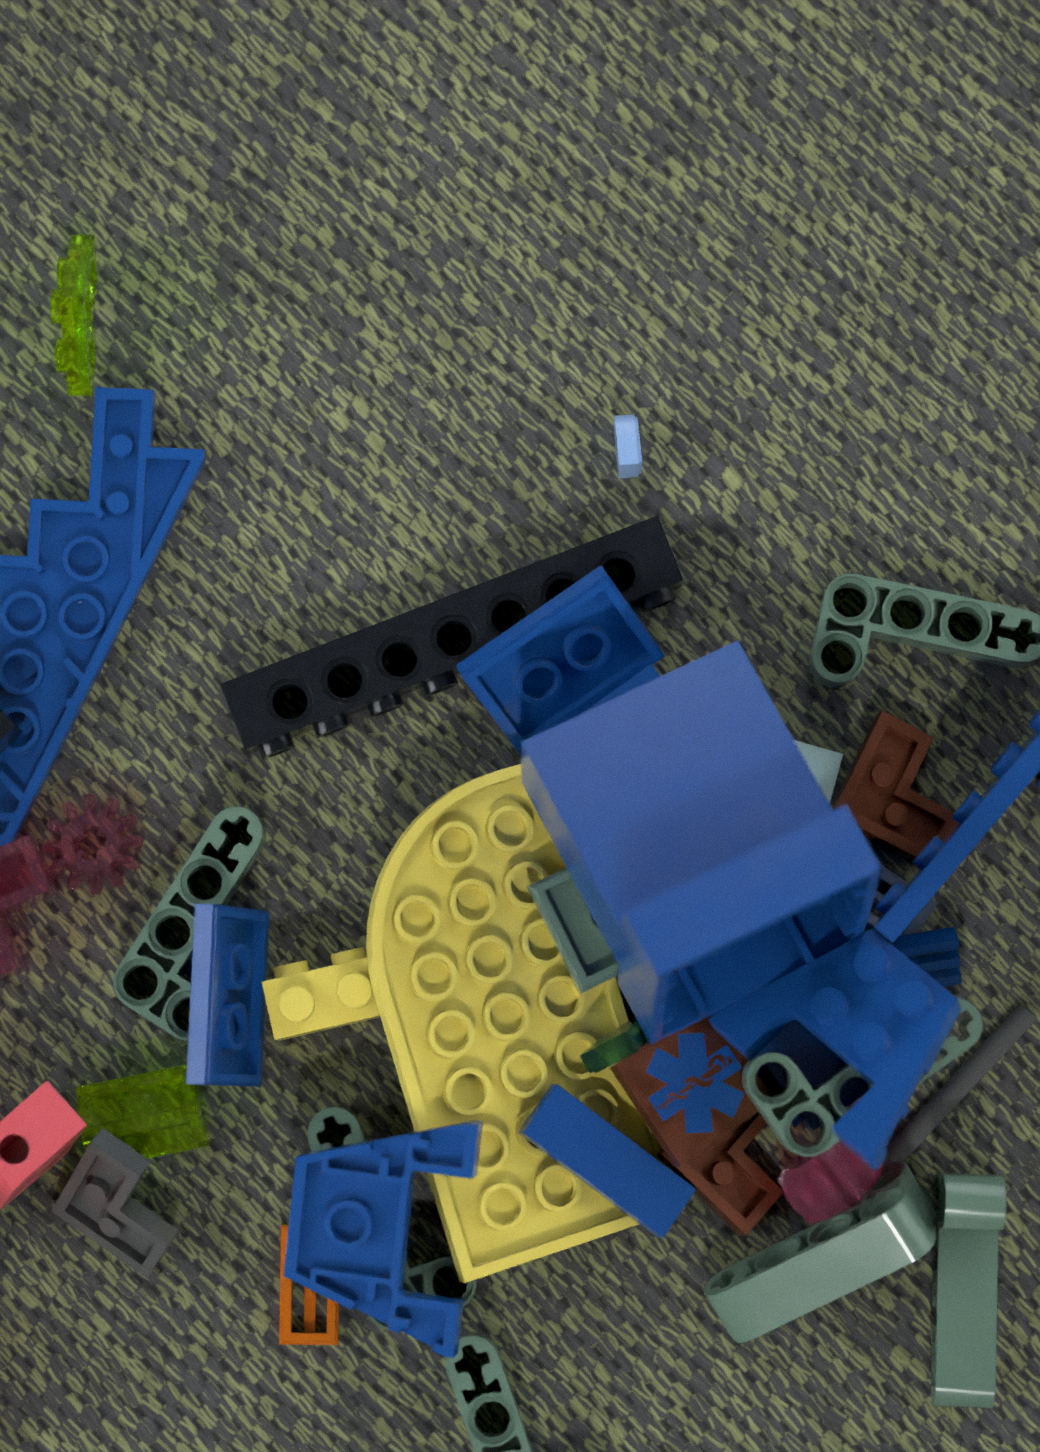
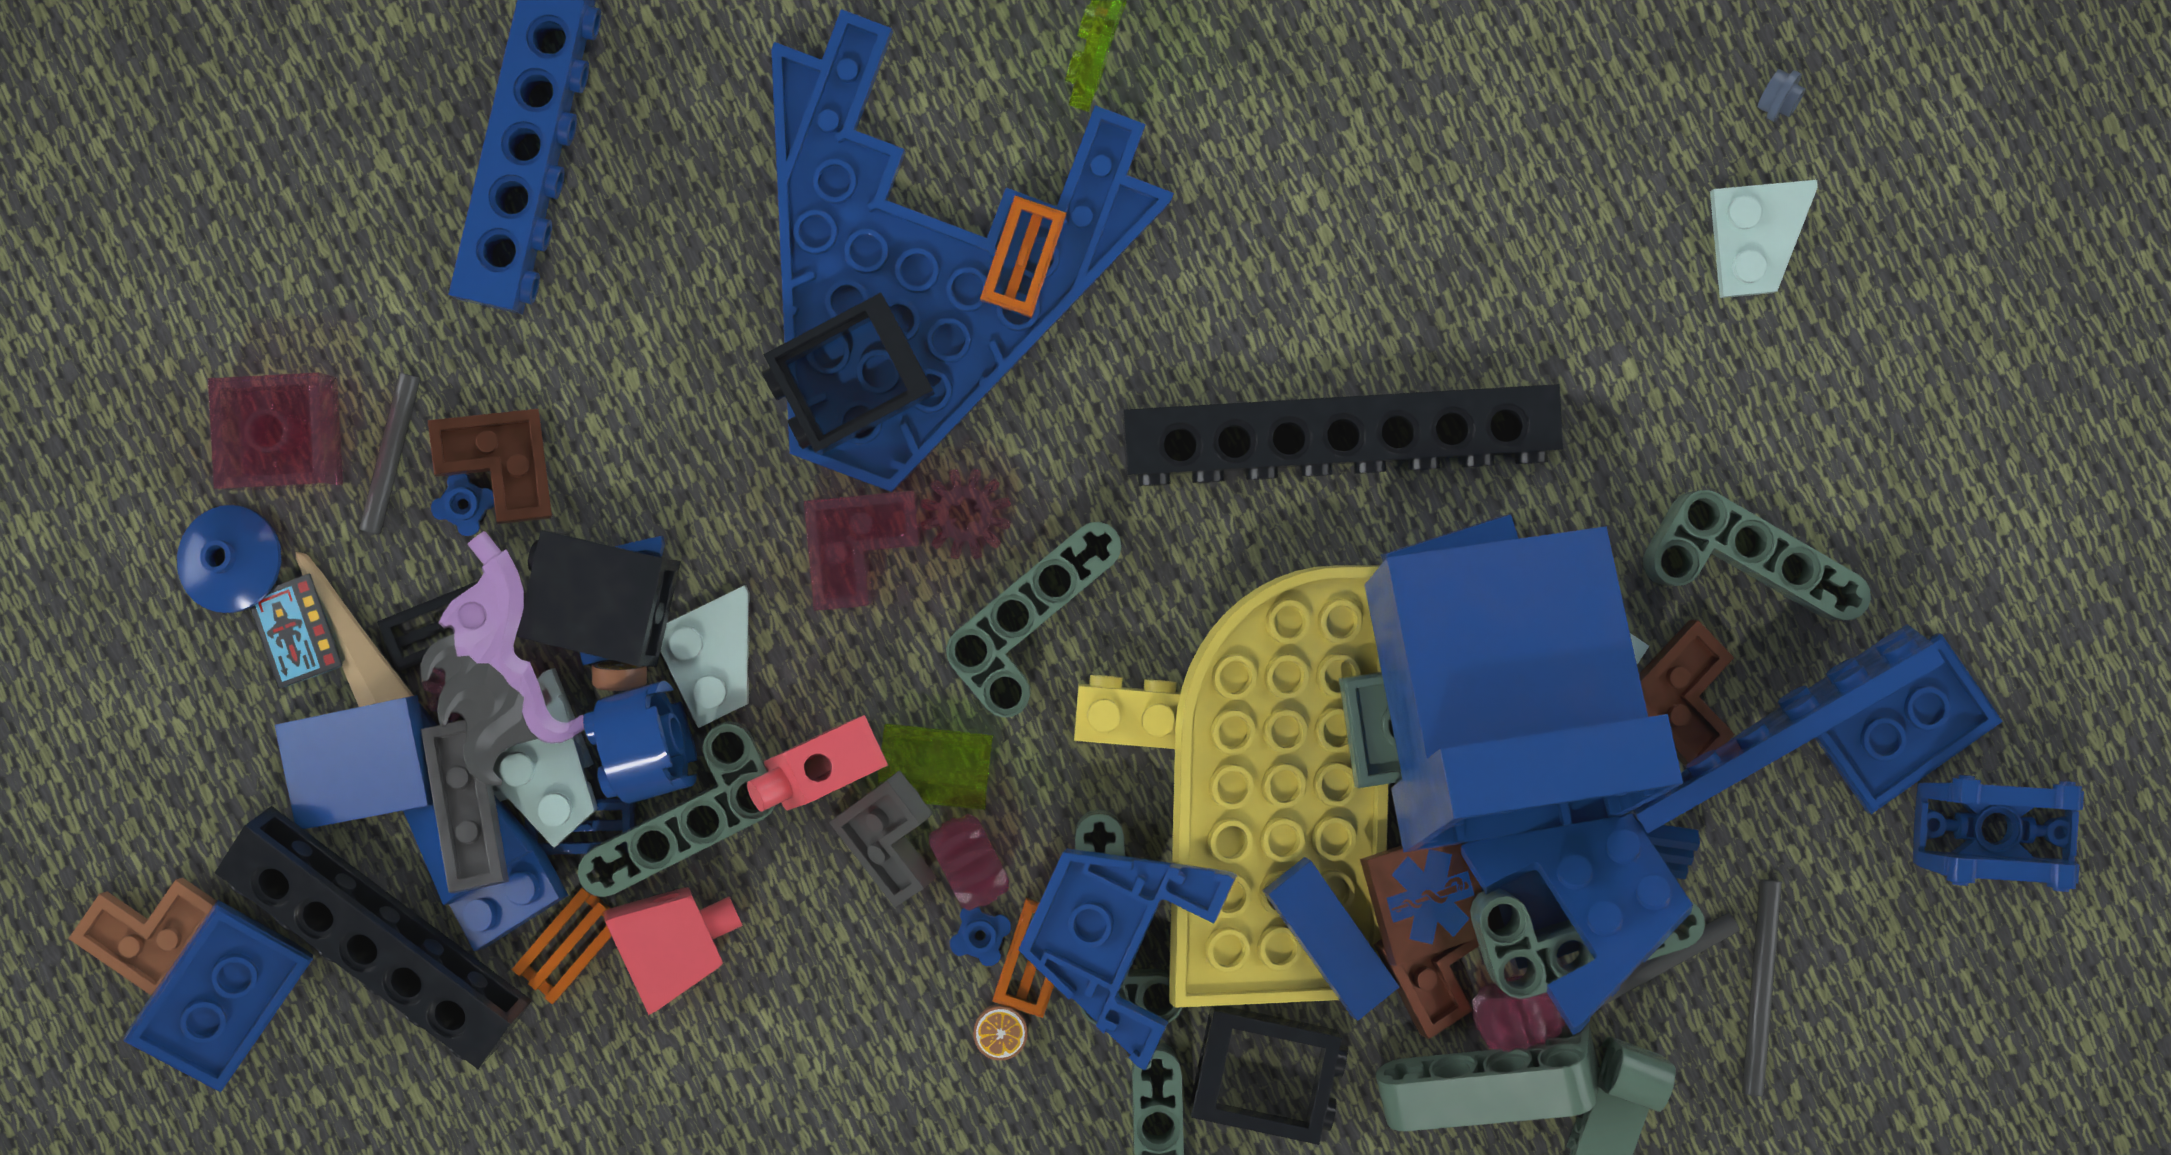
camera: 15 degrees right, 5 degrees up
(68, 611) = (1009, 300): none -> orange tile
(207, 1203) = (969, 862): none -> clear pink gear
(227, 996) = (1044, 688): blue tile -> none
(257, 1266) = (986, 949): none -> blue plate
(298, 1374) = (1000, 1032): none -> nougat tile
(560, 658) = (1431, 485): blue tile -> none
(614, 1046) = (1371, 842): clear green tile -> none
(627, 446) = (1550, 311): light blue tile -> none
(658, 1344) = (1212, 1061): none -> black window
(792, 153) = (1781, 95): none -> sand blue plate
(815, 300) = (1757, 234): none -> light aqua wing

